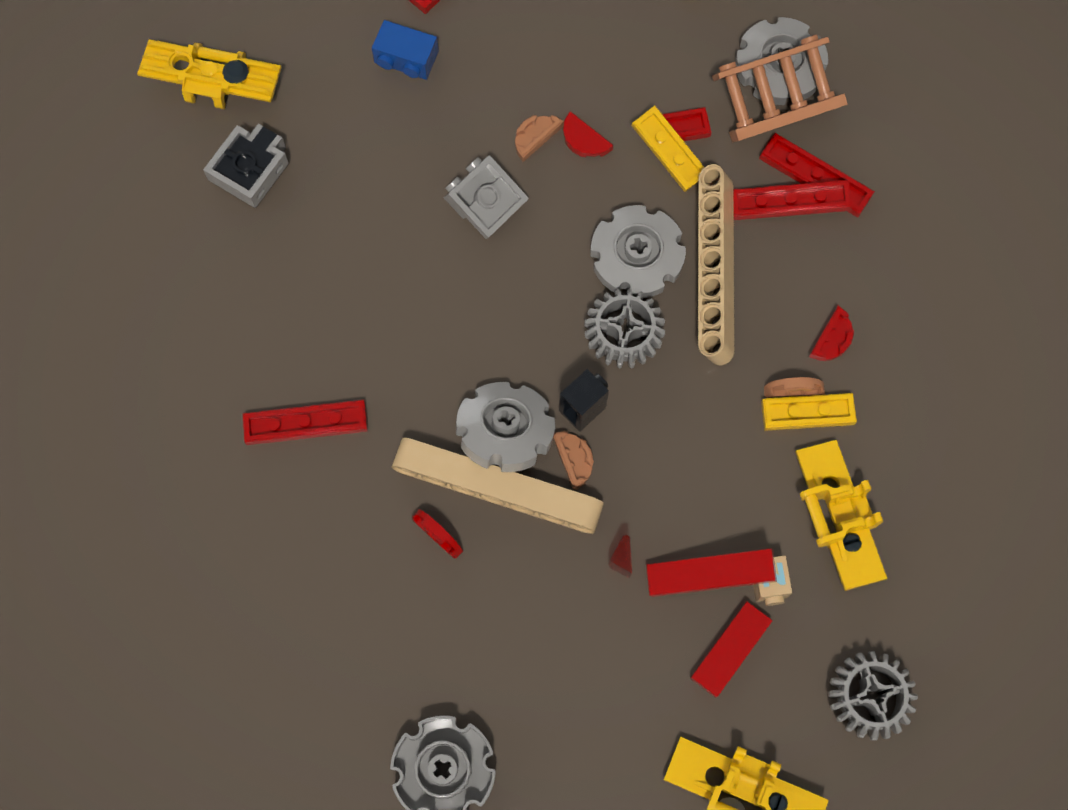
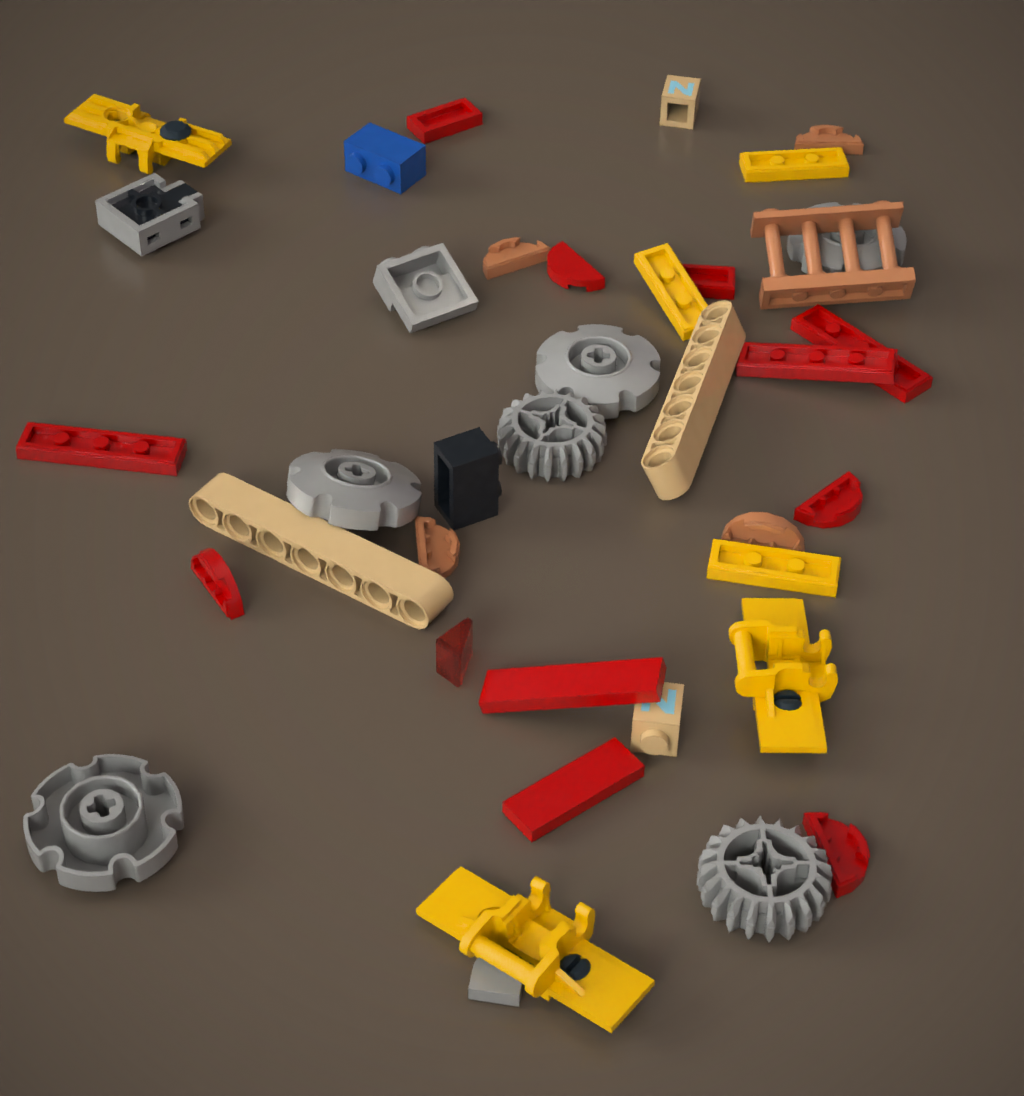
camera: 15 degrees right, 30 degrees down
(910, 651) = (844, 847): none -> red tile

